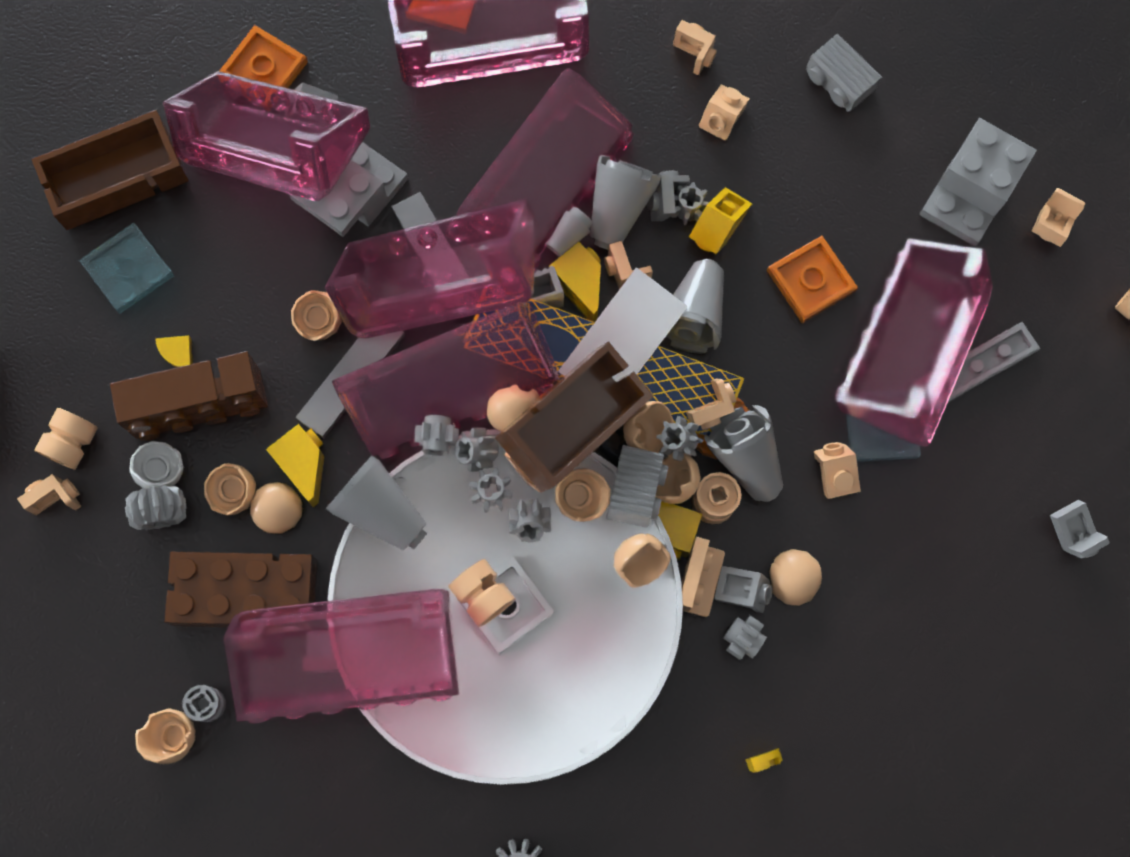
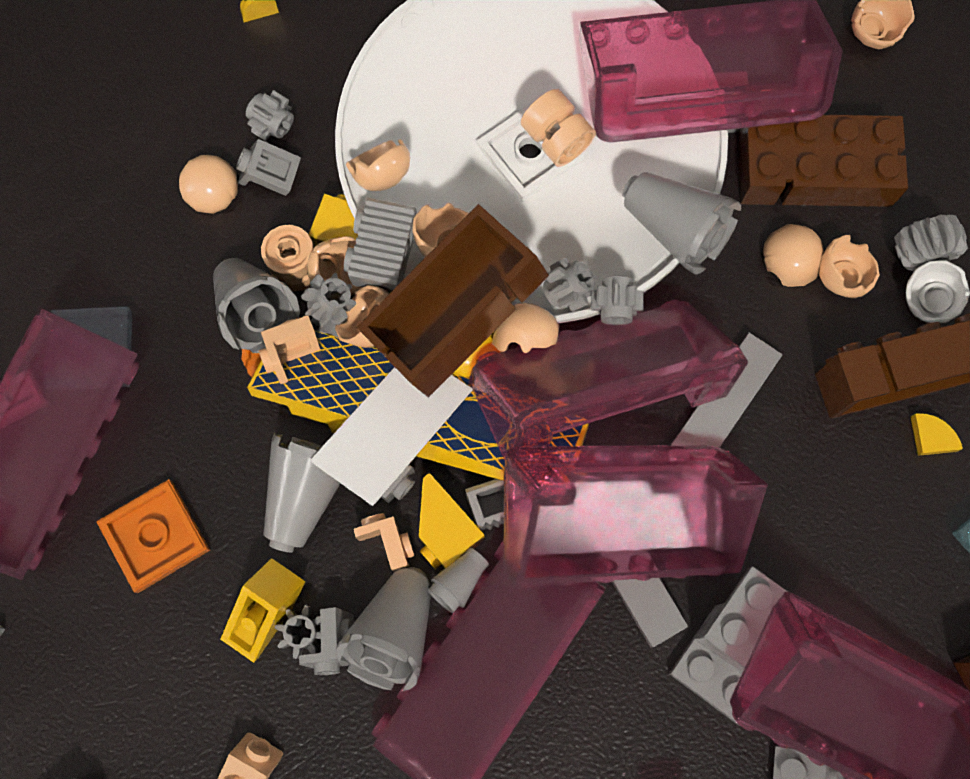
camera: 175 degrees left, 0 degrees up
(211, 705) = (855, 47): light grey wheel -> none
(301, 461) = (771, 299): yellow slope -> none
(315, 316) = (776, 469): light nougat hair -> none
(485, 482) = (554, 229): light grey gear -> none
(529, 520) = (507, 204): light grey gear -> none
(701, 577) = (315, 176): light nougat bracket -> none
(838, 470) = (148, 299): light nougat bracket -> none

